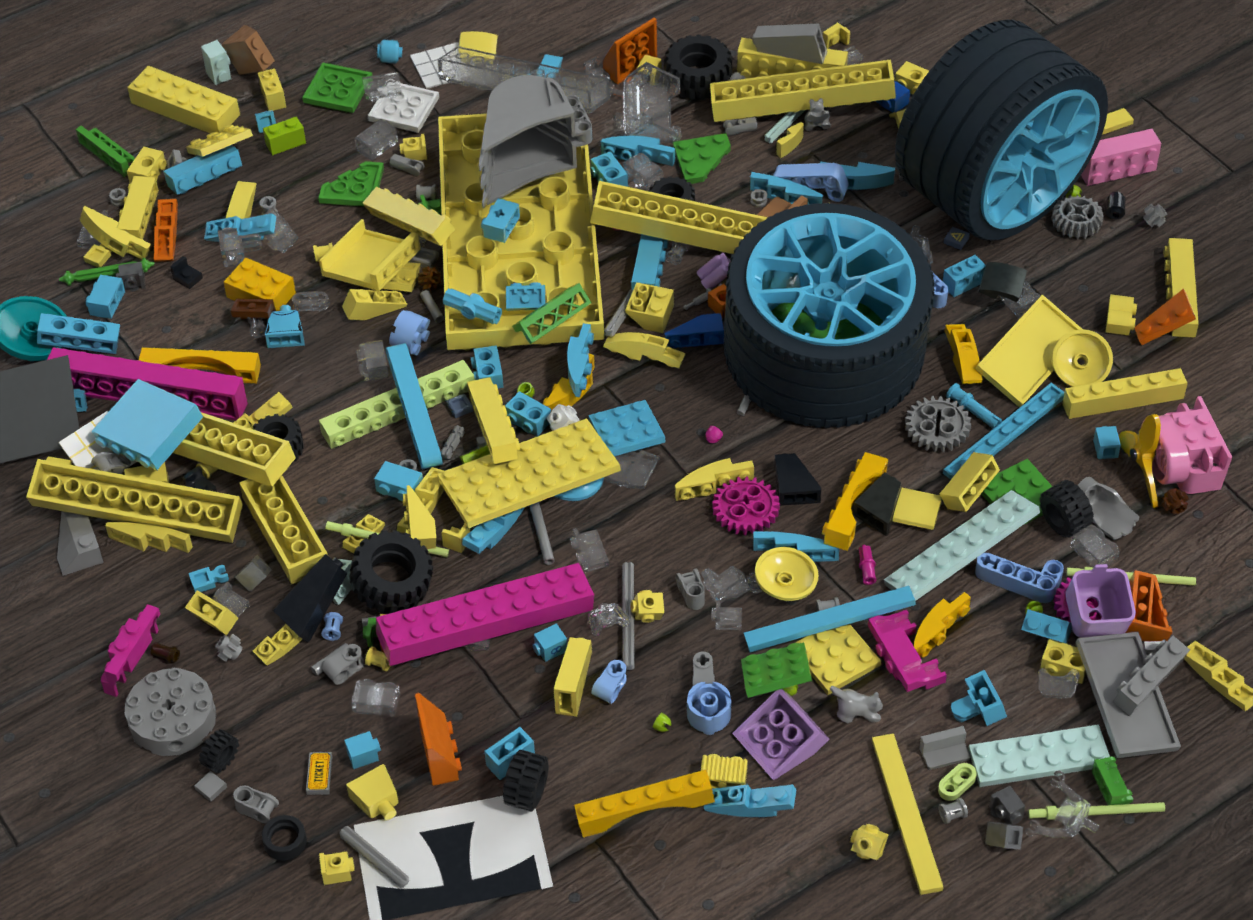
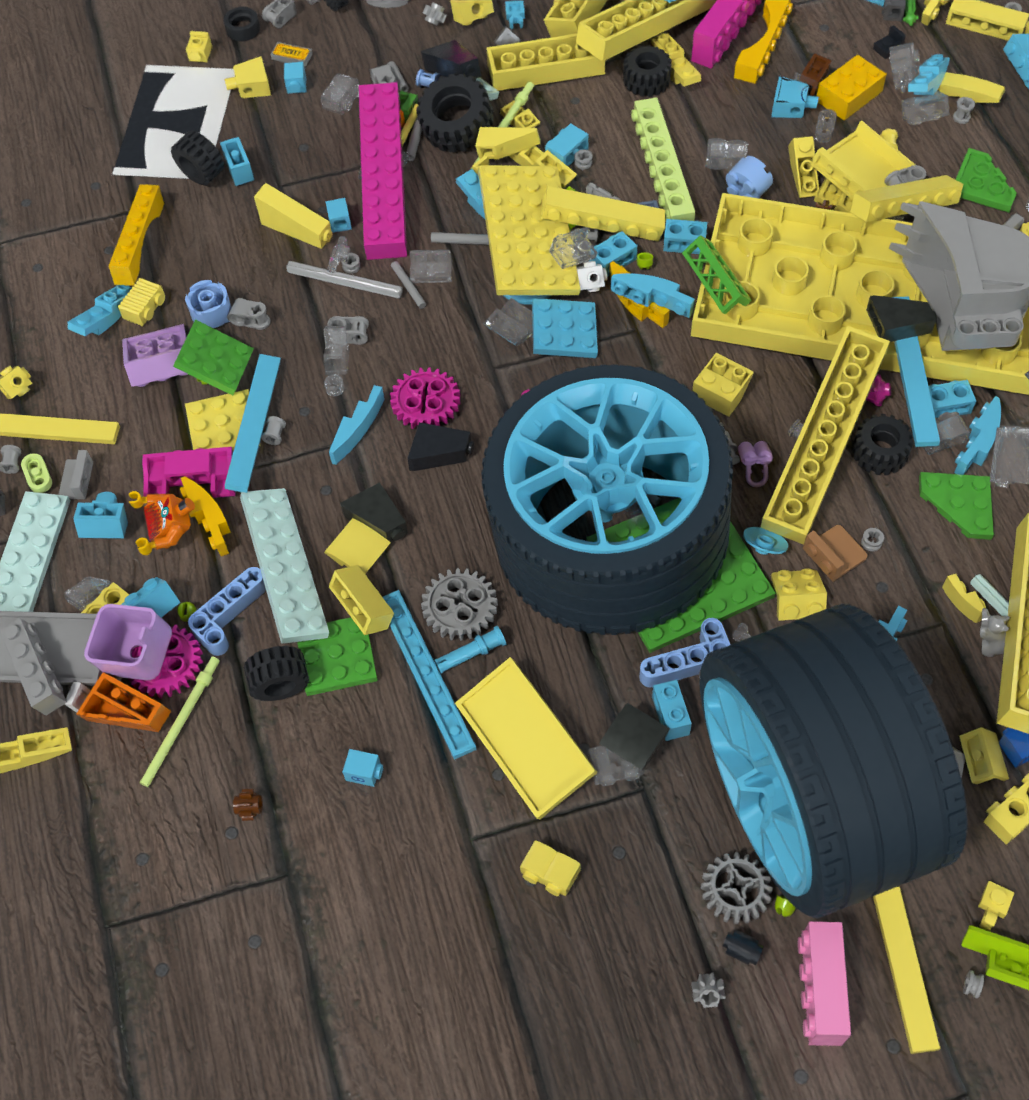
camera: 110 degrees right, 10 degrees up
(165, 230) = (948, 36): orange slope -> none
(231, 600) = (487, 25): clear bracket -> none
(274, 648) = (424, 40): light yellow slope -> none
(374, 856) = (196, 71): light grey axle -> none
(380, 225) = (905, 175): none -> light grey piece
(414, 406) = (644, 159): medium azure beam -> none
(437, 742) = (267, 108): orange slope -> none
(472, 306) = (746, 212): medium azure piece -> none
(500, 220) = (865, 258): medium azure brick -> none
(525, 297) = (756, 266): medium azure bracket -> none
(548, 426) = (572, 248): none -> clear bracket
(567, 185) = (900, 318): none -> pearl dark grey slope
(610, 682) = (275, 247): light blue piece -> none
(615, 563) = (408, 284): none -> light grey bar
(616, 175) = (916, 391): none -> medium azure tile
(618, 317) = (710, 348): light grey axle -> none
(639, 344) = (671, 352): light yellow slope -> none
(648, 606) = (339, 288): light yellow brick -> none
(649, 260) = (781, 397): medium azure brick -> none
(660, 723) = (217, 274): lime hinge -> none
(706, 479) = (470, 380): light yellow slope -> none
(726, 617) = (305, 350): clear bracket -> none
(739, 126) = (1004, 556): light grey bar -> none
(783, 188) = (869, 569): medium azure slope -> none
(787, 566) = (316, 391): light yellow dish -> none
(816, 176) = (886, 587): light blue beam -> none
(842, 525) = (346, 455): yellow arch -> none
(856, 704) = (158, 416): light grey animal -> none
(867, 565) = (309, 480): dark pink axle -> none
(962, 645) = (165, 518): none -> torso
(965, 353) = (553, 663): yellow slope -> none
(1085, 346) = (486, 785): light yellow dish -> none
(1094, 547) = (226, 696): clear brick -> none
(1109, 509) = (271, 723): light grey hair -> none
(1124, 393) = (422, 819): light yellow brick -> none
(1167, 318) = (513, 914): orange wing -> none
(1179, 450) = (304, 827): bright pink brick -> none
(1181, 276) = (571, 967): light yellow brick -> none

